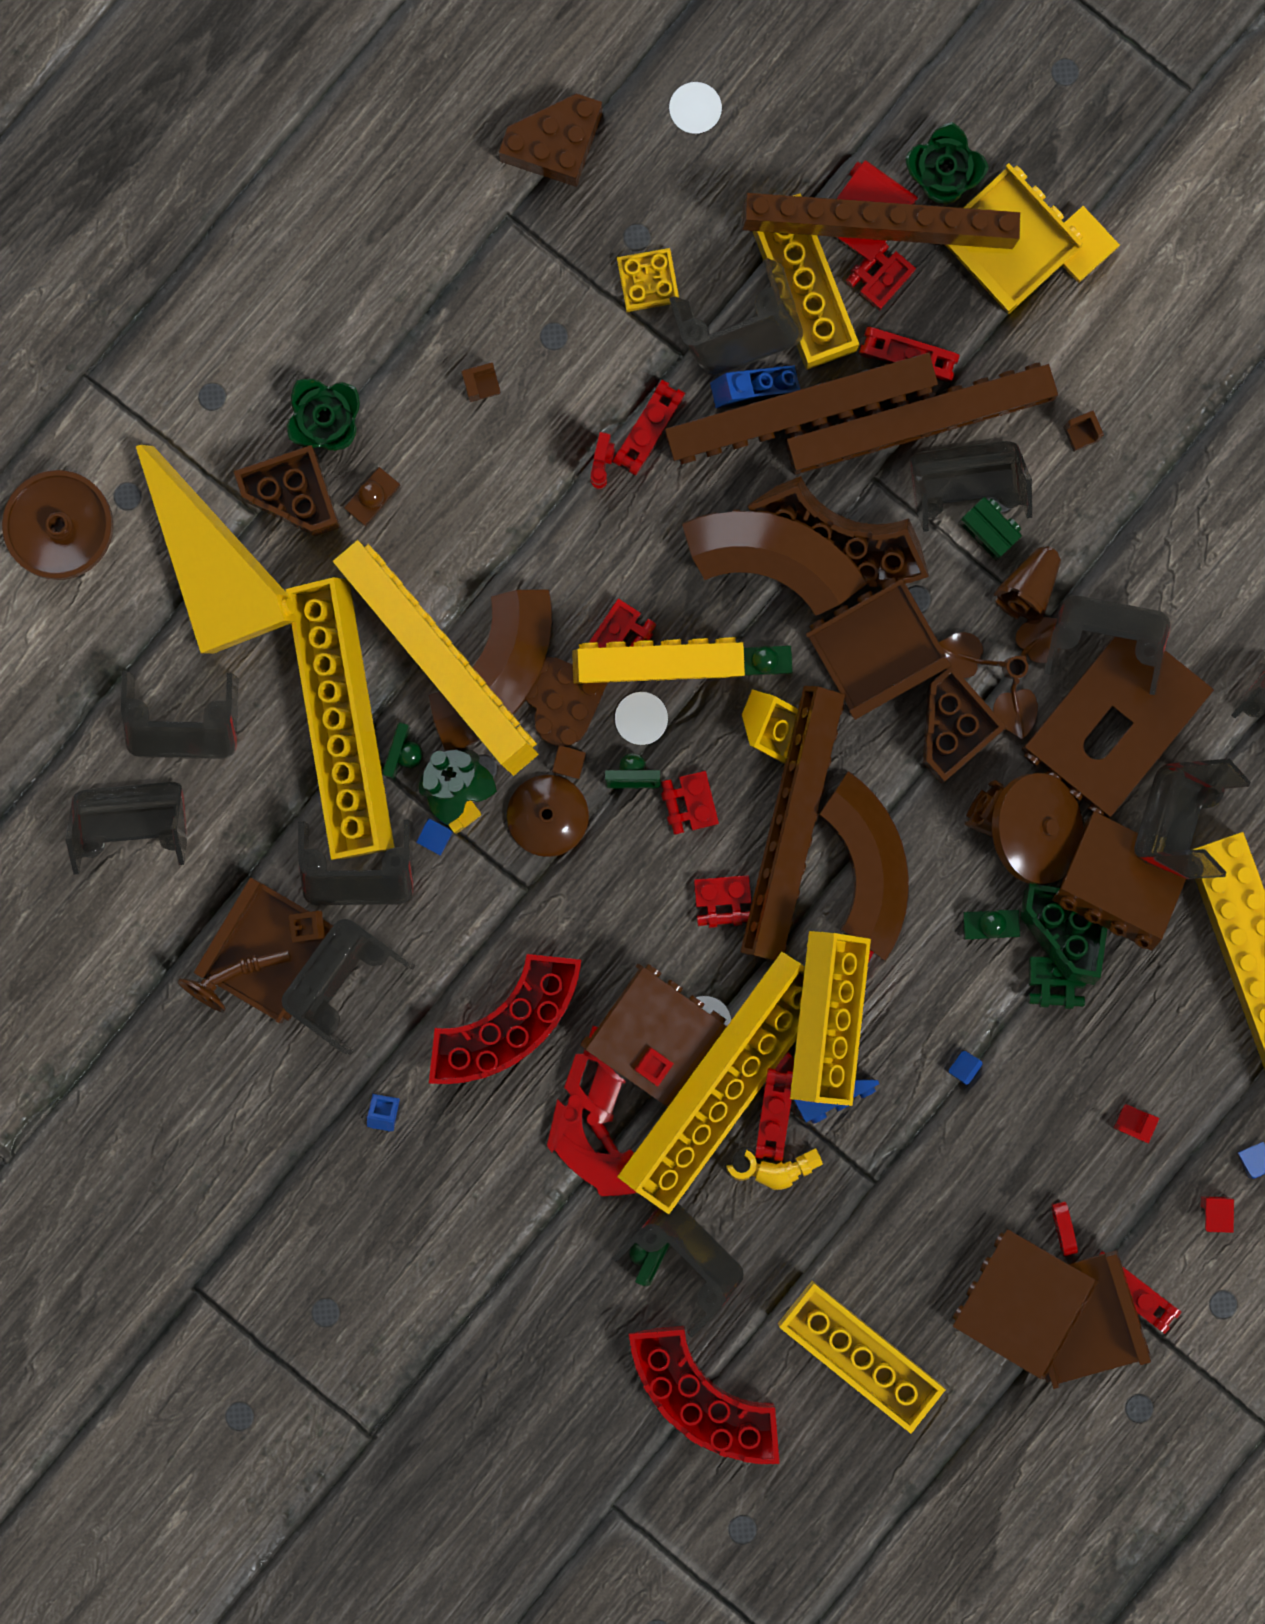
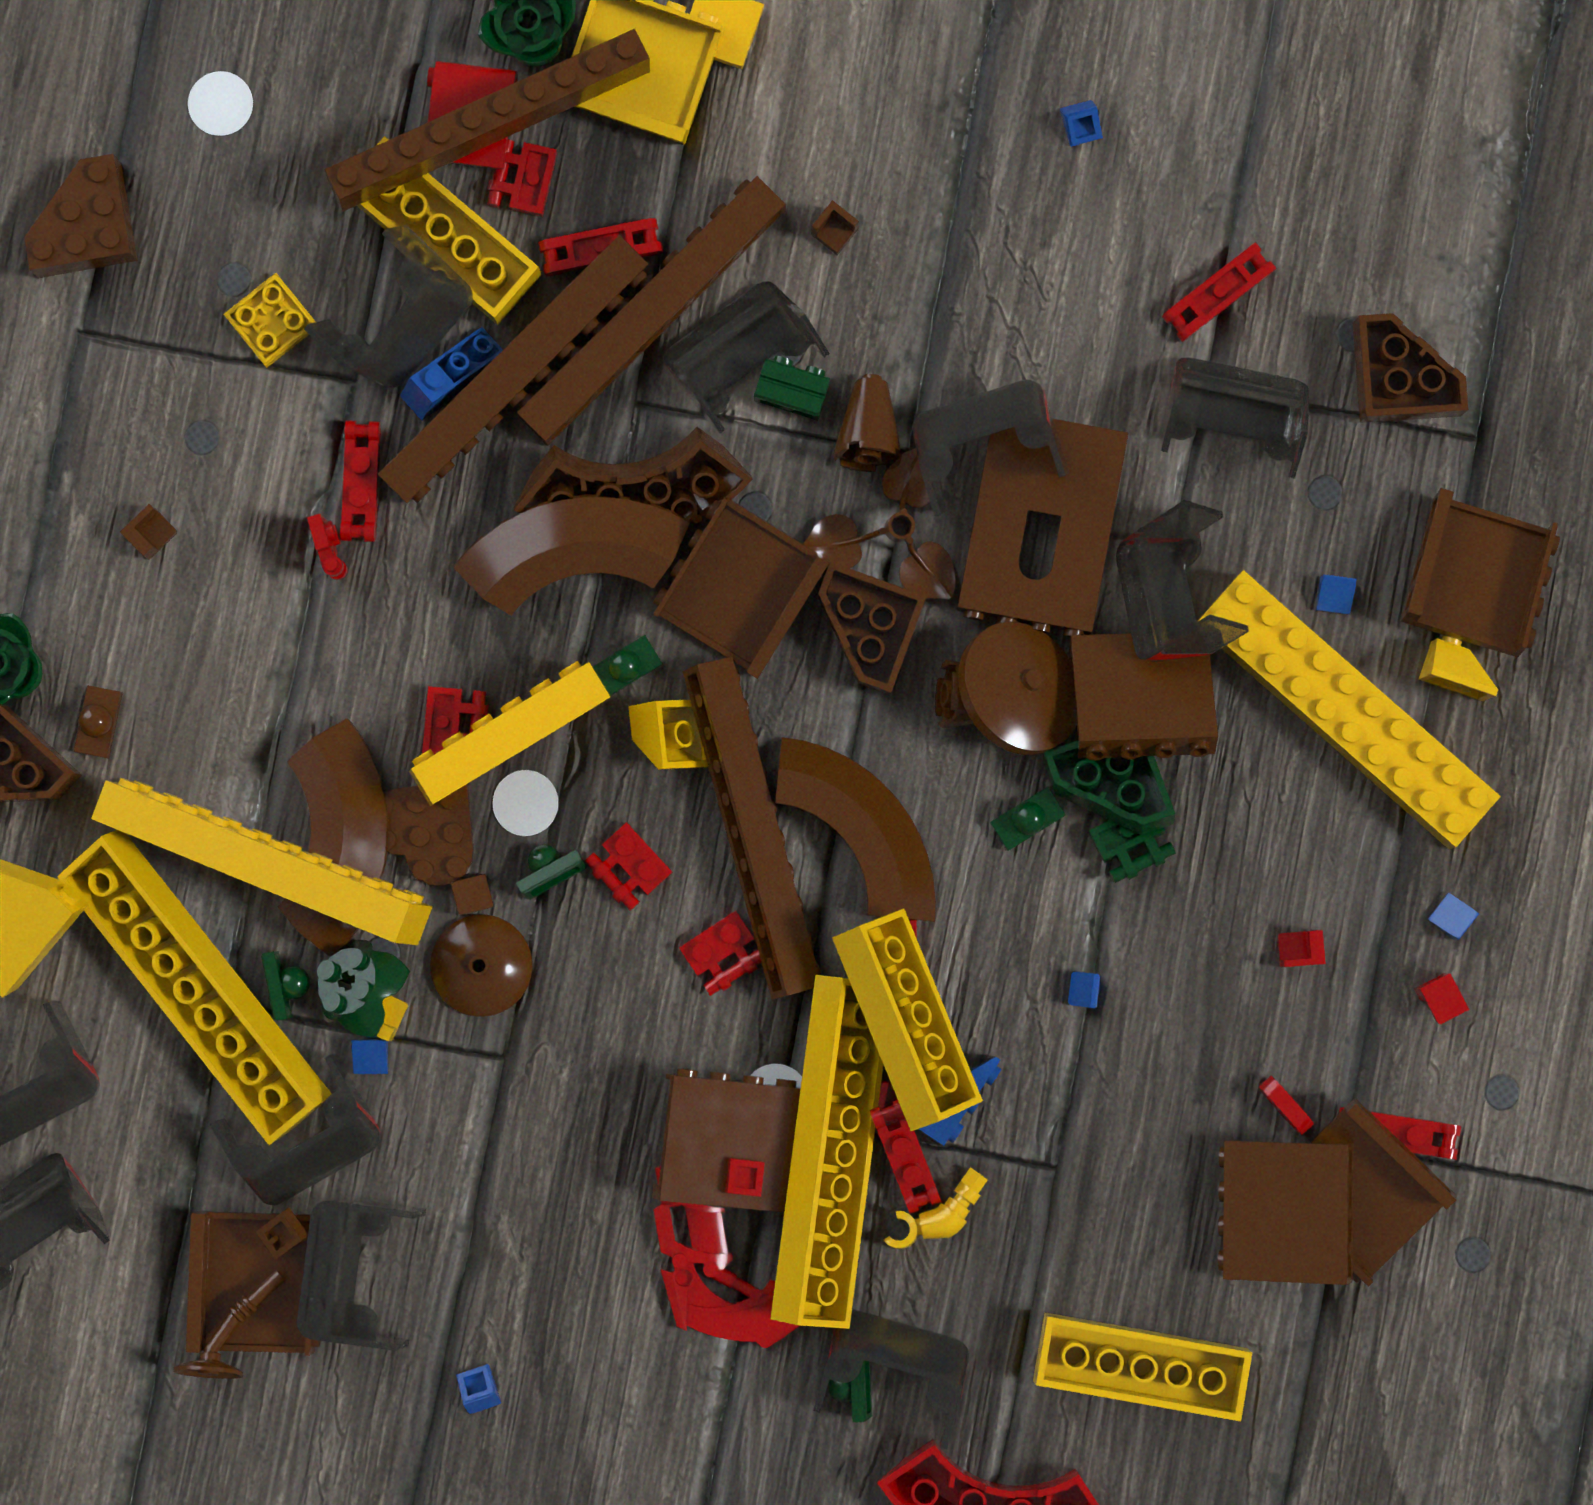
camera: 30 degrees left, 0 degrees up
(512, 1029) = (568, 1221): red brick -> none

